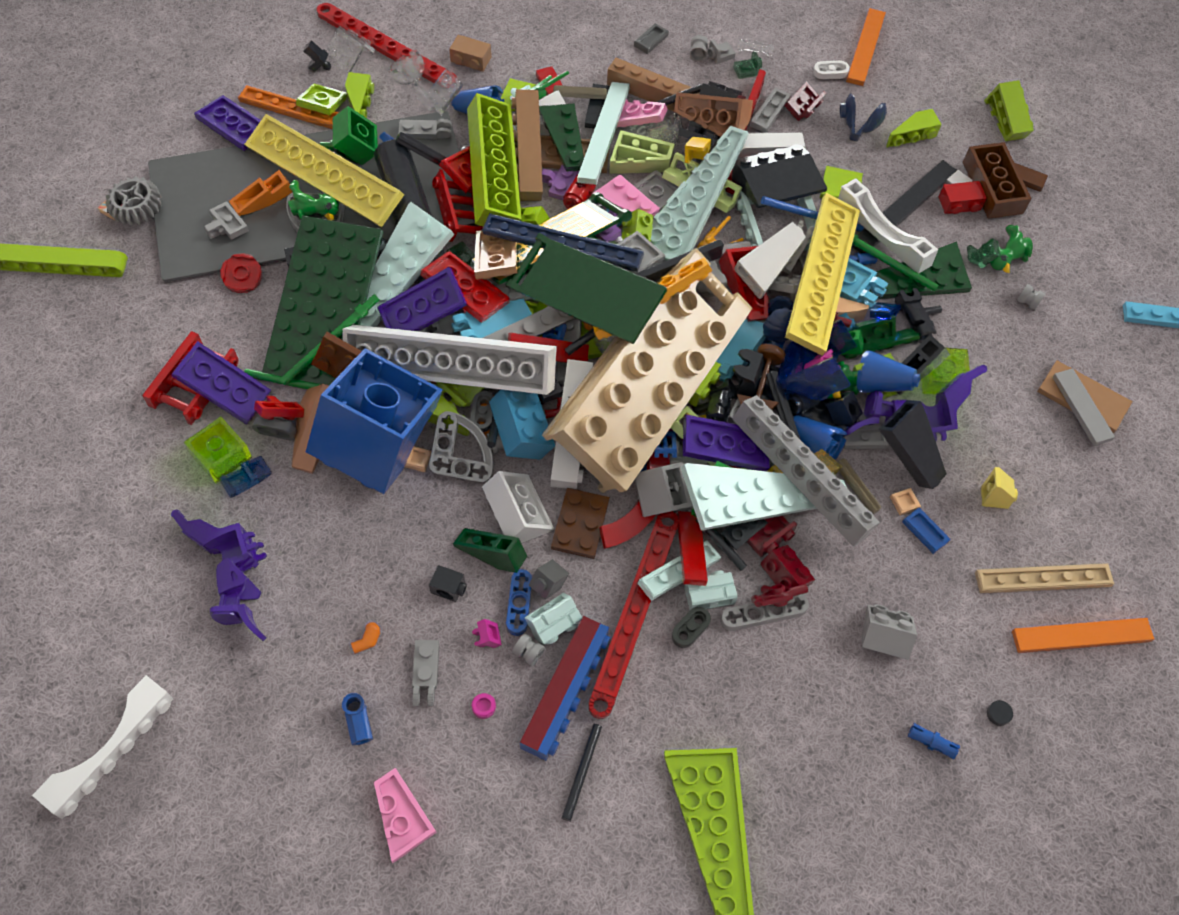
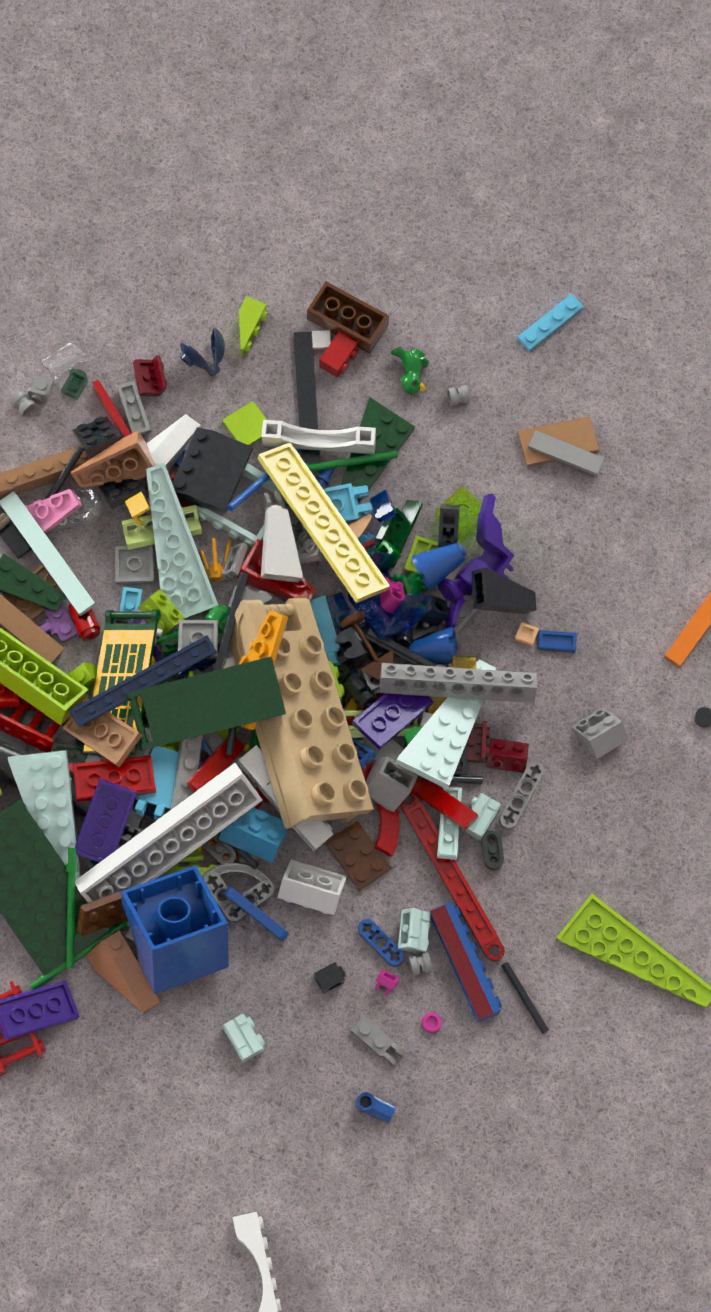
camera: 50 degrees left, 10 degrees up
(218, 449) = (91, 1052): clear neon green brick -> none
(237, 557) = (191, 1099): dark purple piece -> none
(250, 474) = (124, 1049): clear blue slope -> none
(274, 428) = (96, 1005): dark grey plate -> none
(275, 408) = (92, 989): red hinge -> none
(331, 557) = (243, 1037): none -> light aqua brick
(369, 638) = (324, 1058): orange arm -> none
(401, 814) = (460, 1127): bright pink wing -> none
(451, 479) = (256, 913): none -> blue beam
(494, 549) = (328, 929): dark green slope -> none
(548, 579) = (384, 911): dark grey brick -> none
(627, 196) = (124, 592): bright pink wing -> none
(640, 154) = (91, 545): yellowish green wedge -> none
(777, 595) = (521, 779): dark red piece -> none
(778, 319) = (324, 578): dark blue animal -> none
(831, 69) = (133, 325): white plate -> none
(858, 486) = (490, 653): dark tan axle -> none
(866, 47) = (136, 275): orange tile -> none
(916, 314) = (402, 484): black piece -> none
(933, 741) = (686, 773): blue pin -> none
(985, 254) = (397, 391): clear green bracket -> none
(998, 490) = (573, 570): light yellow slope -> none
(1011, 110) = (299, 240): lime wedge -> none
(1032, 178) = (362, 287): reddish brown tile -> none
(1044, 578) = (650, 602): tan tile -> none

